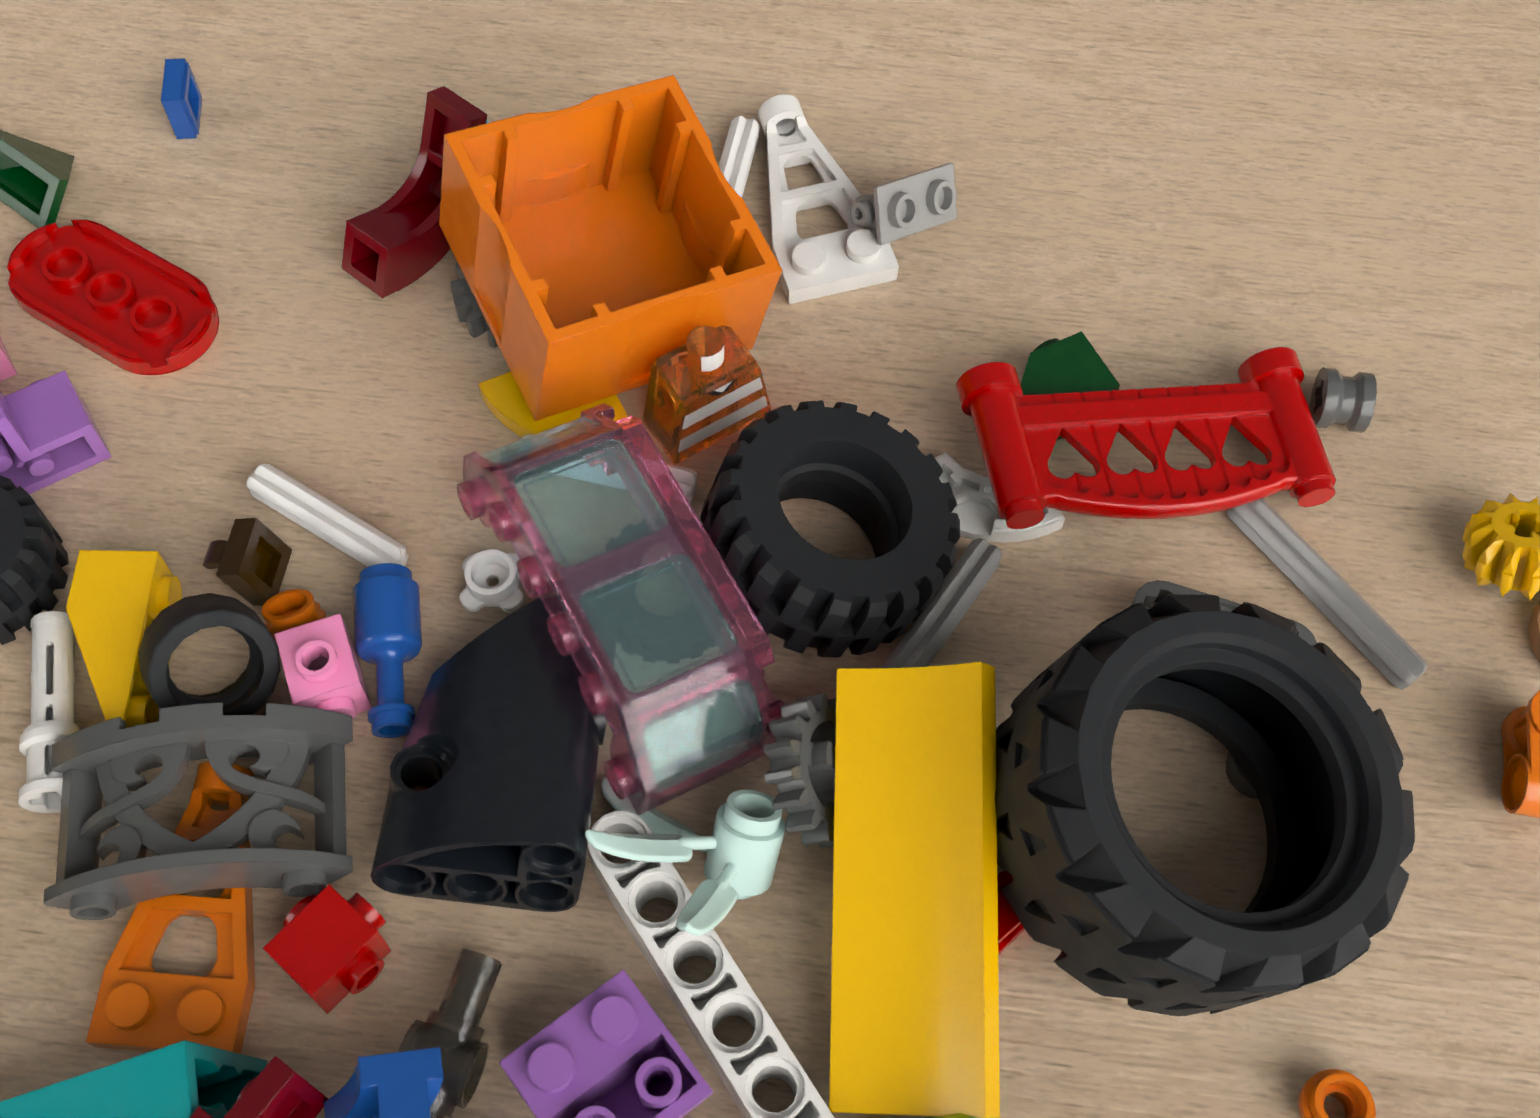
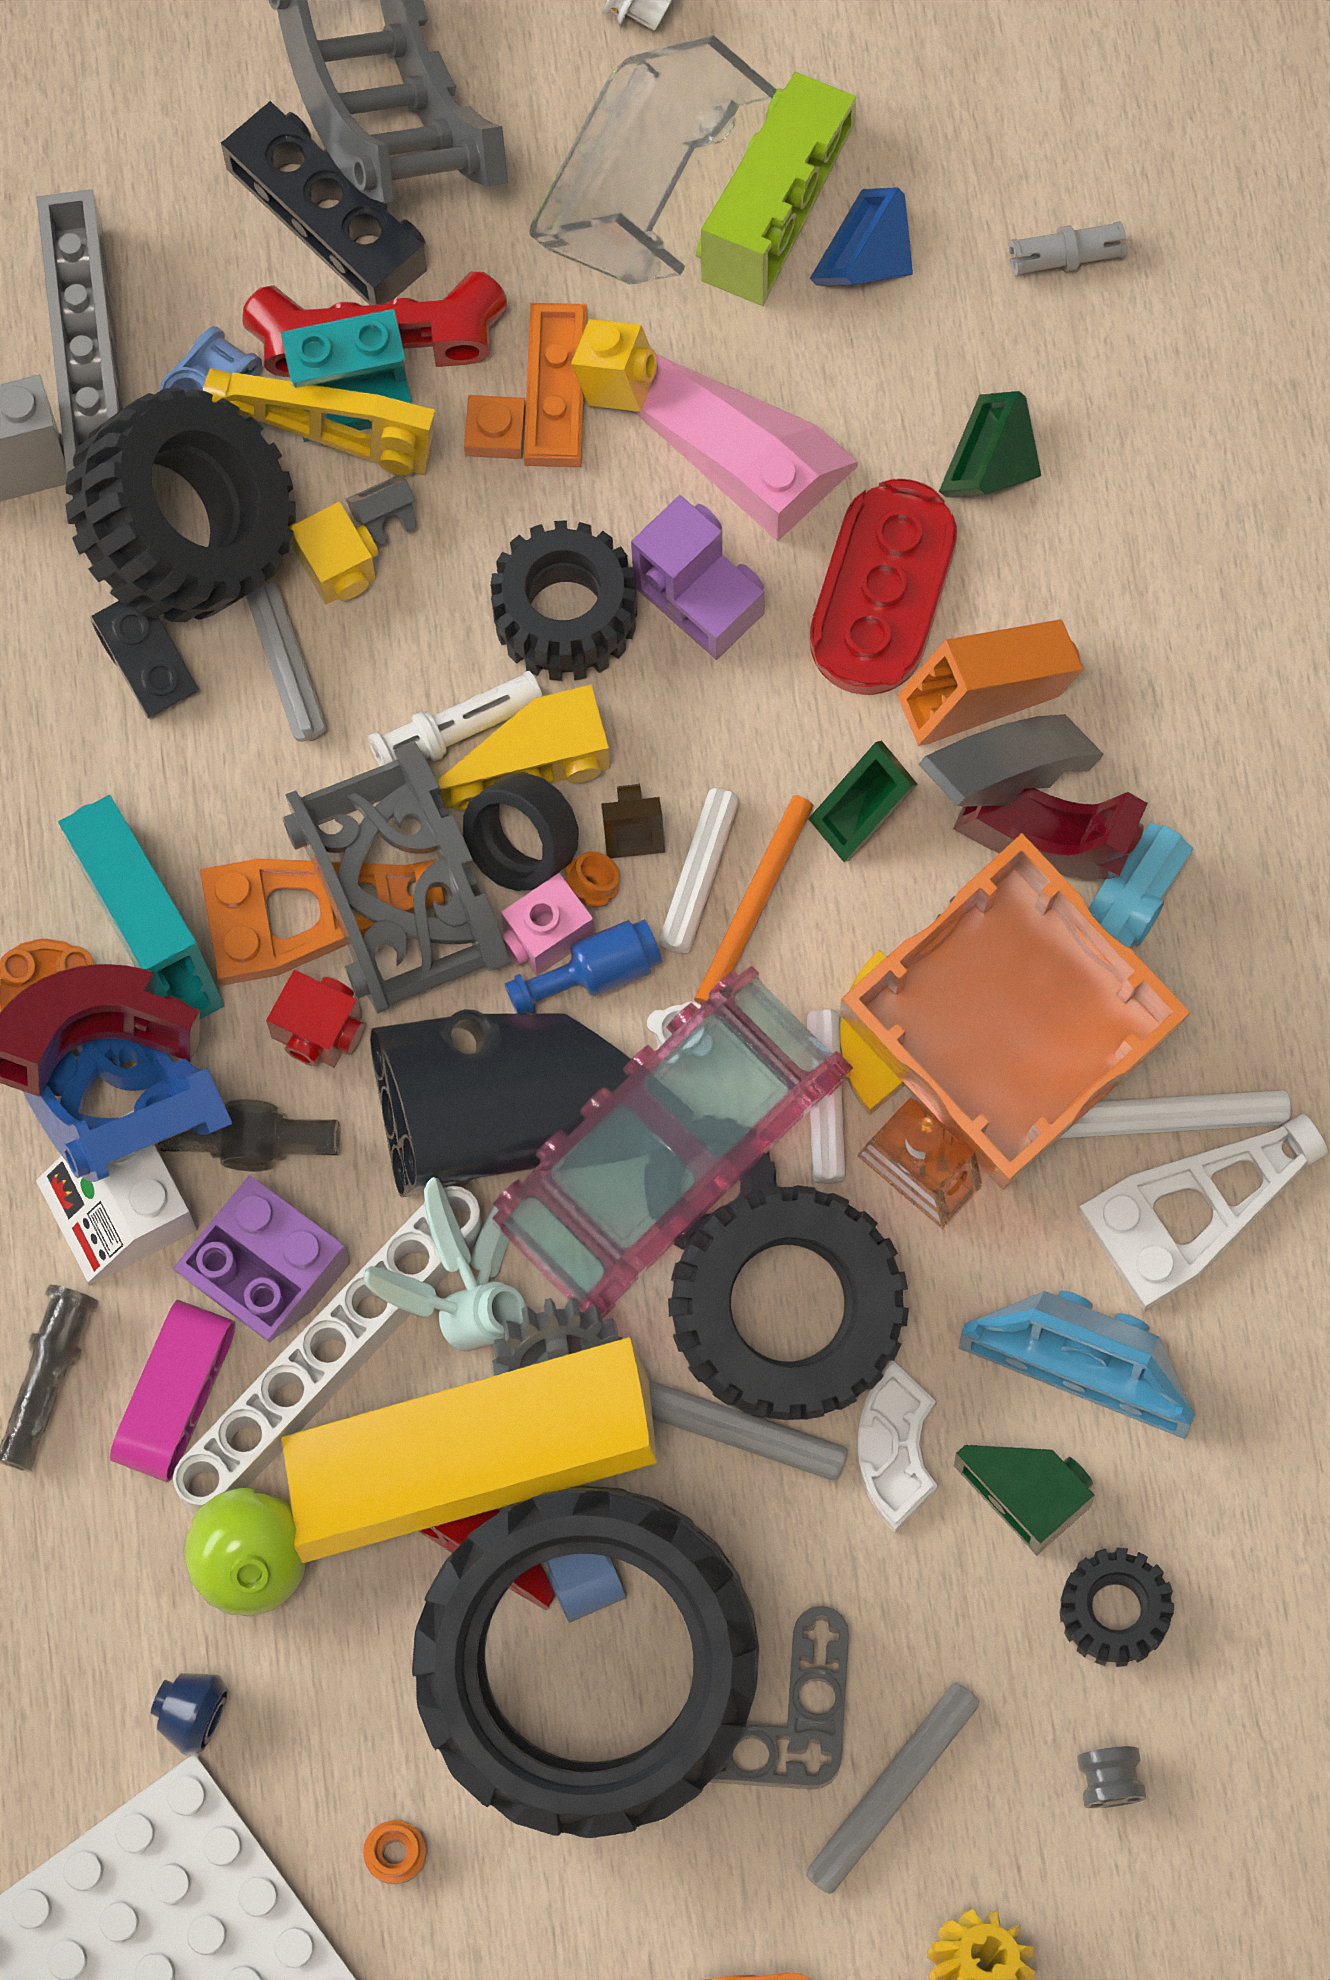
camera: 80 degrees right, 10 degrees up
(181, 98) = (1126, 549): blue tile -> none
(250, 228) = (988, 678): none -> orange slope
(324, 348) = (862, 801): none -> dark green slope
(347, 203) = (1004, 760): none -> dark grey slope
(382, 483) = (756, 895): none -> orange bar
(908, 204) = (1222, 1303): light grey hinge -> none
(940, 313) = (1085, 1355): none -> dark azure wedge
(1184, 332) = (1123, 1570): none -> black tyre
(1266, 408) = (1063, 1696): red piece -> none

